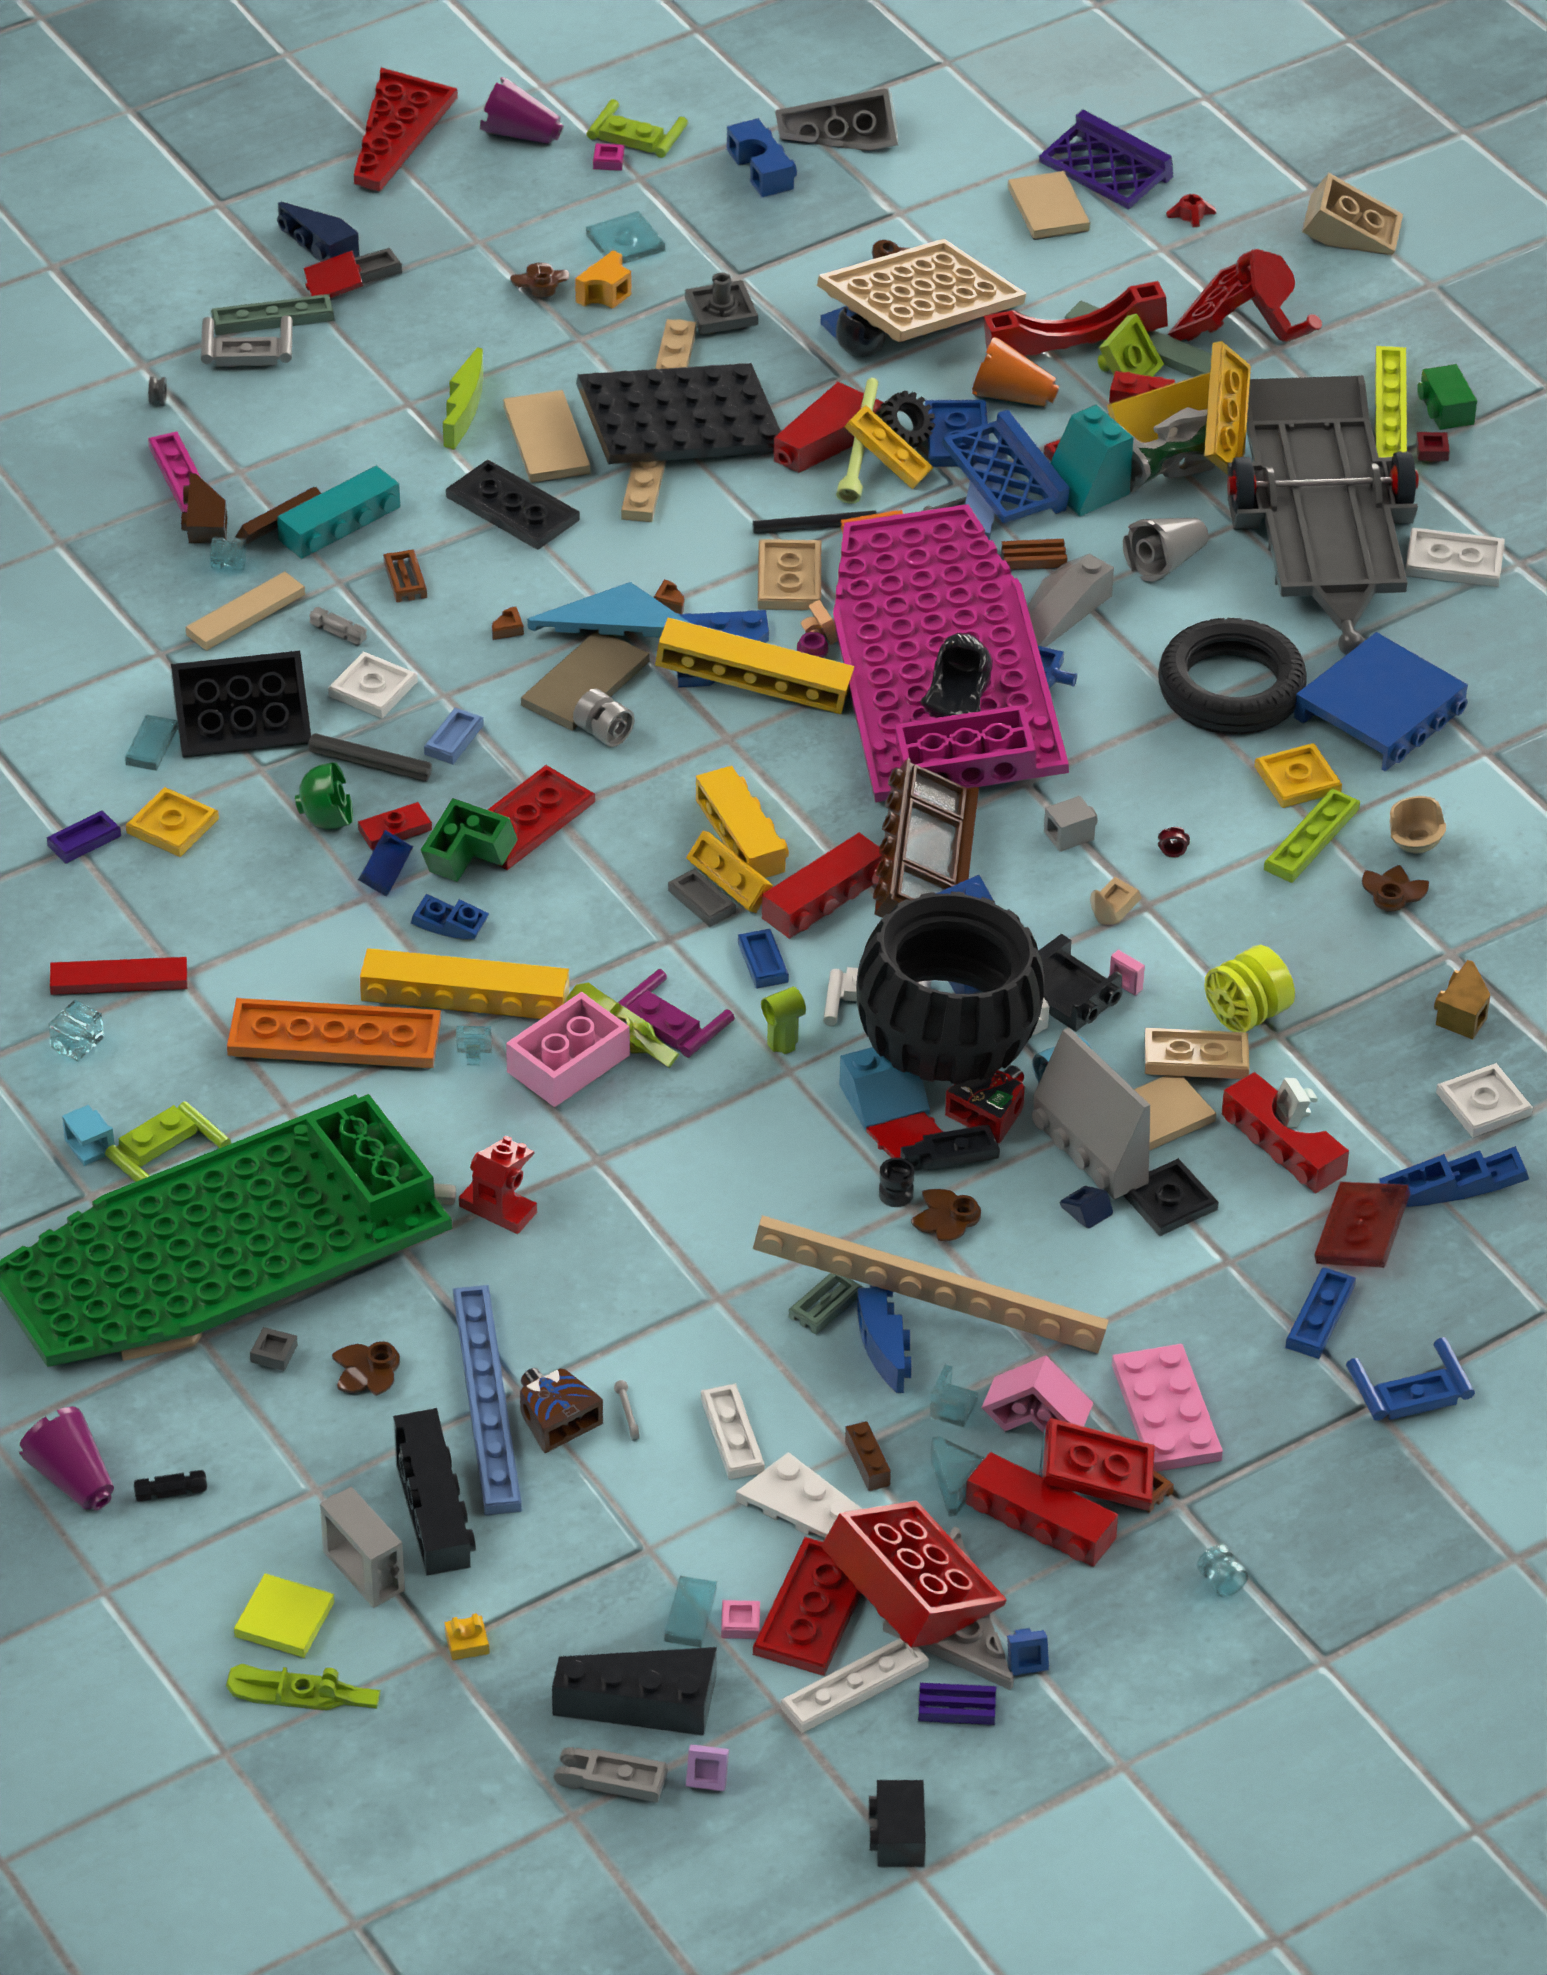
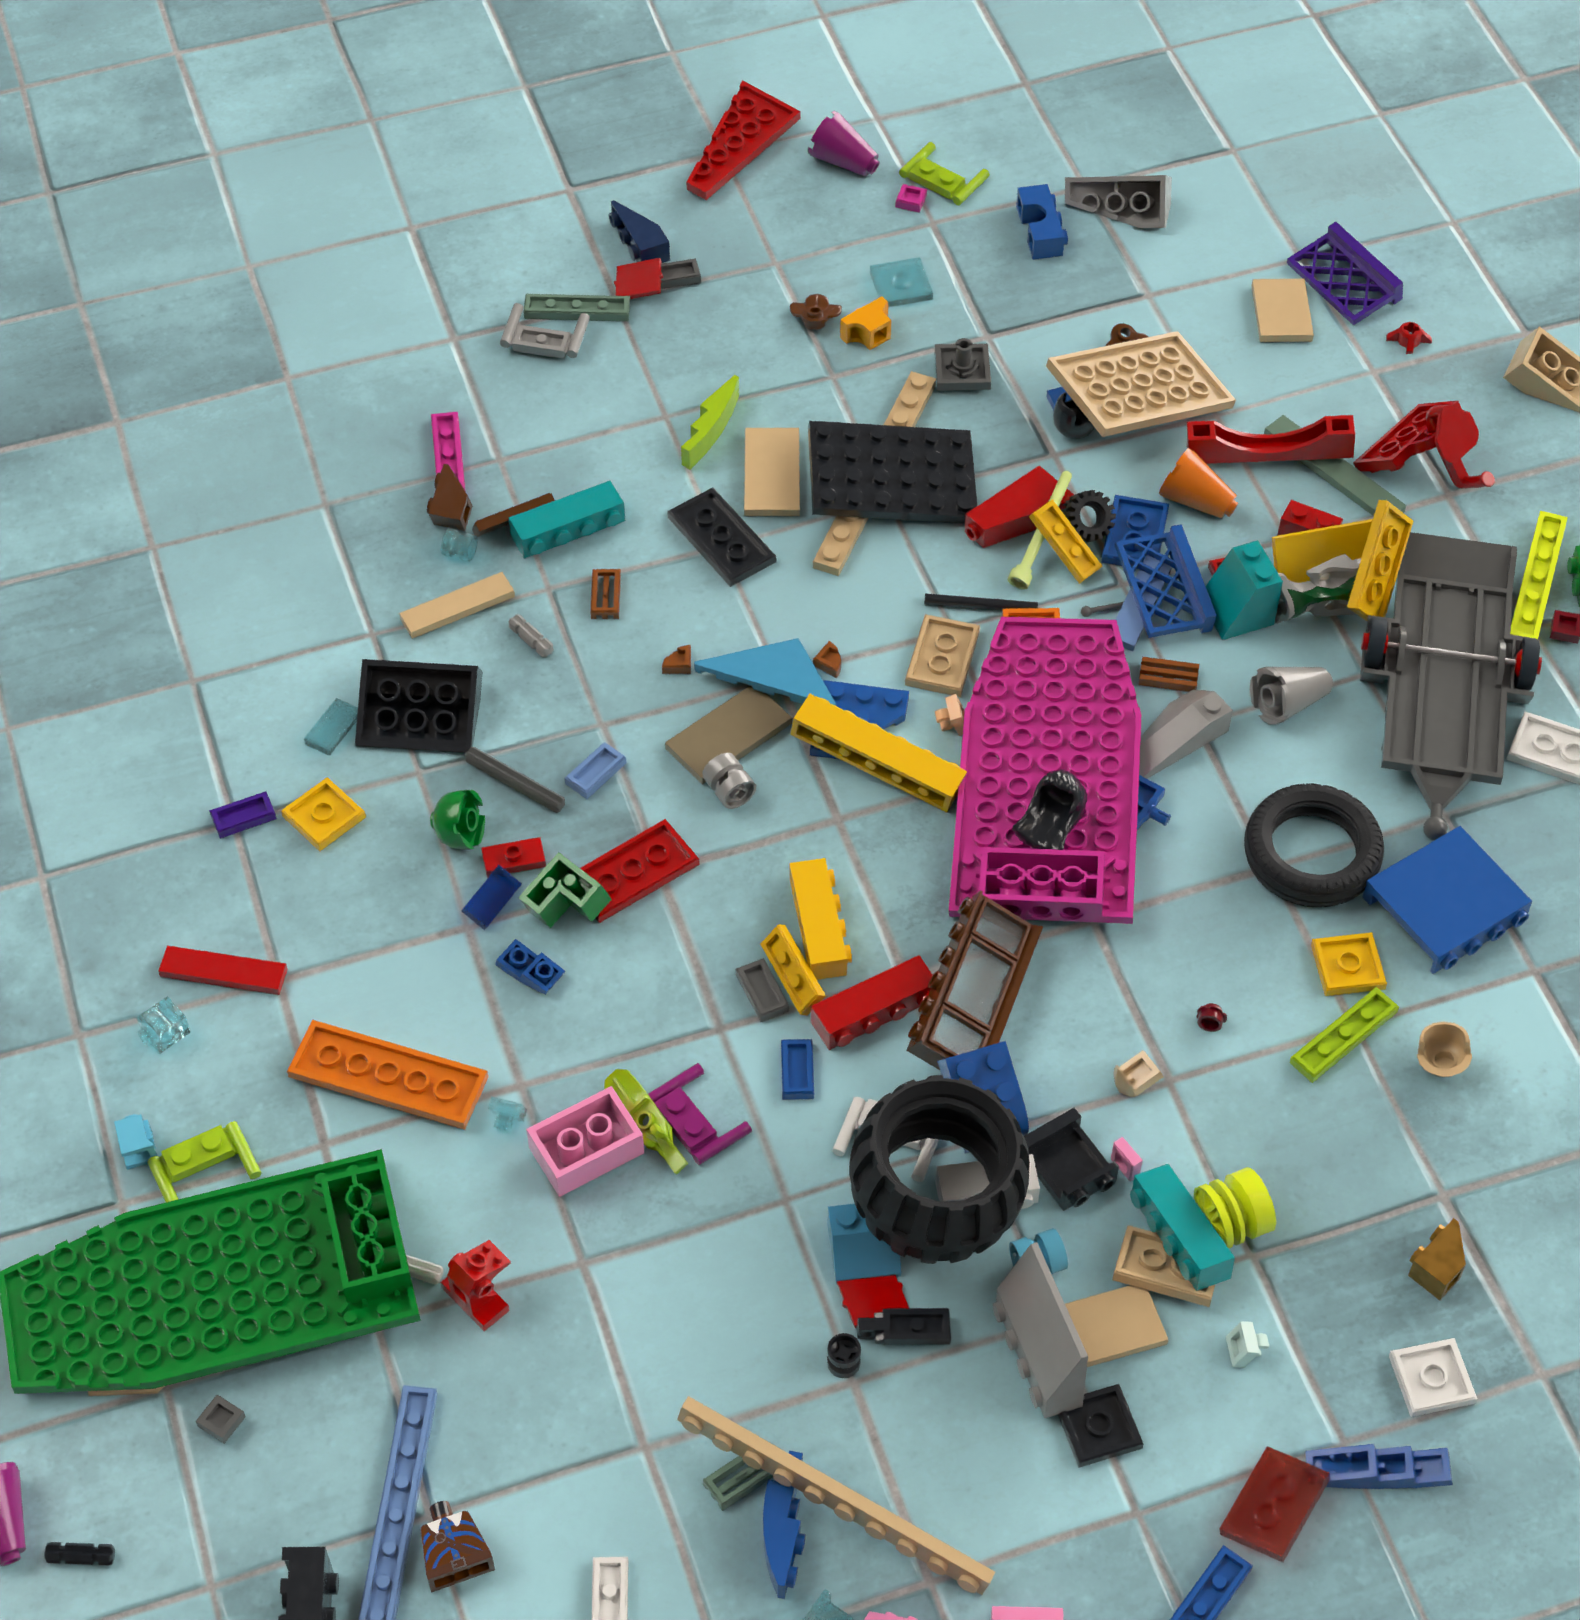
camera: 15 degrees right, 10 degrees up
(157, 390) = (454, 367): dark grey bush -> none
(367, 1367) = (294, 1459): reddish brown plate -> none
(372, 685) = (542, 703): white tile -> none
(462, 984) = (518, 1046): yellow brick -> none
(621, 1388) = (522, 1534): light grey hinge -> none
(782, 1015) = (789, 1150): lime piece -> none
(813, 644) = (940, 737): magenta plate -> none
(947, 1214) = (878, 1398): reddish brown plate -> none
(988, 1101) = (957, 1284): torso -> none
(1070, 823) = (1120, 978): light grey brick -> none
(1088, 1205) = (1018, 1418): dark blue slope -> none
(1129, 350) = (1311, 480): lime tile -> none
(1202, 1013) = (1182, 1227): none -> teal brick
(1311, 1157) = (1246, 1413): red arch -> none
(1393, 888) = (1408, 1109): reddish brown plate -> none

